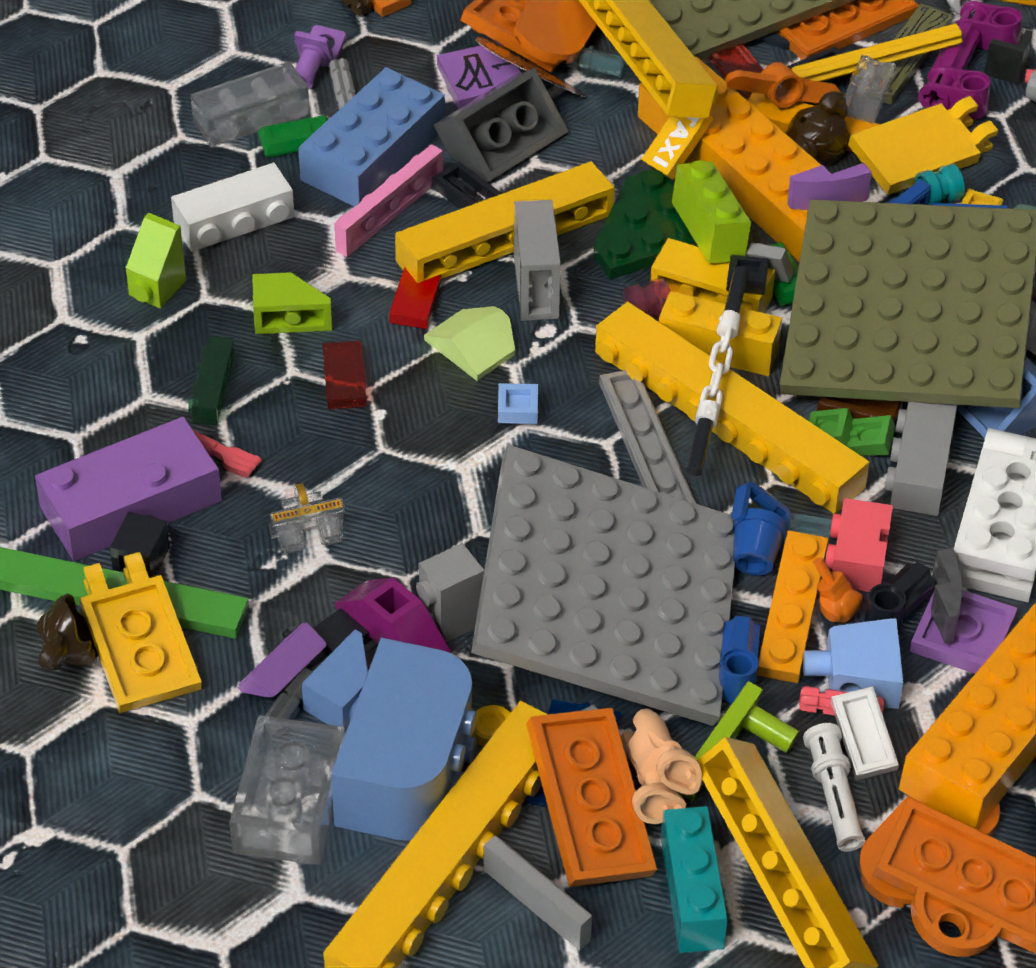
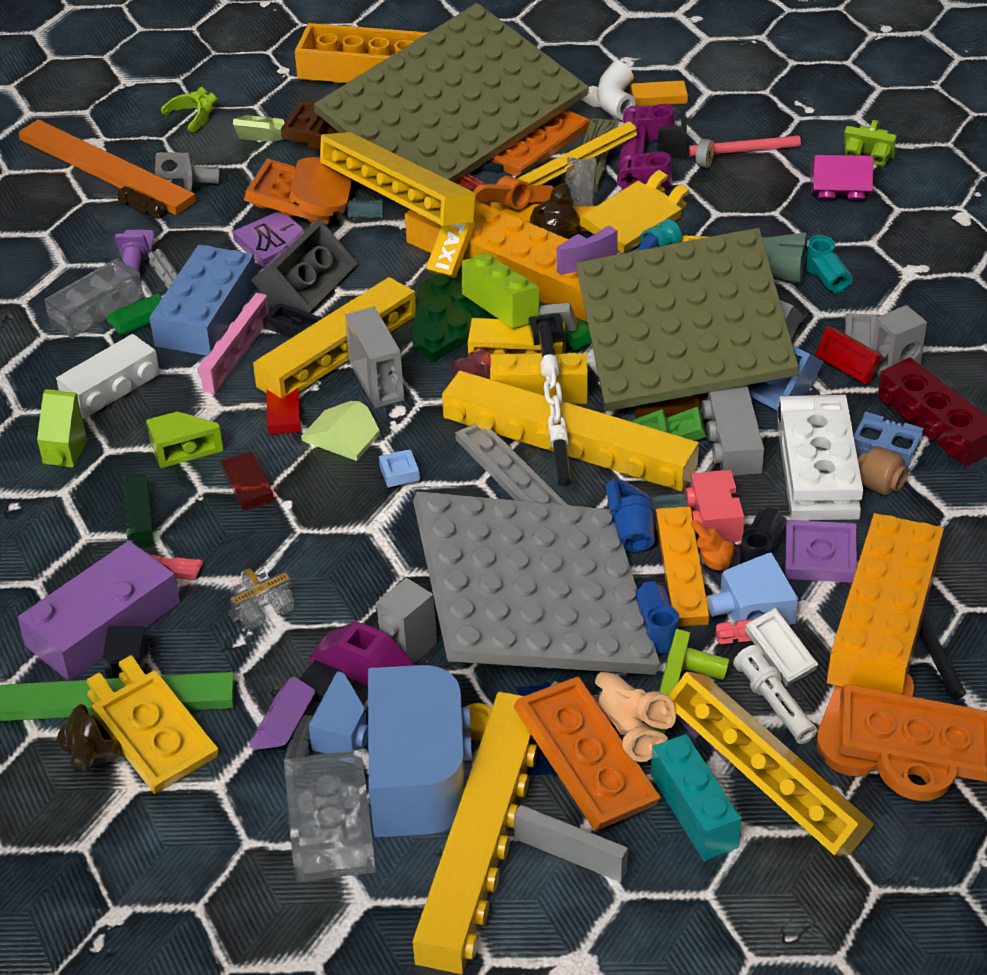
camera: 15 degrees left, 5 degrees down
(525, 64) = (308, 221): sticker -> none
(947, 593) = (804, 524): flat silver slope -> none

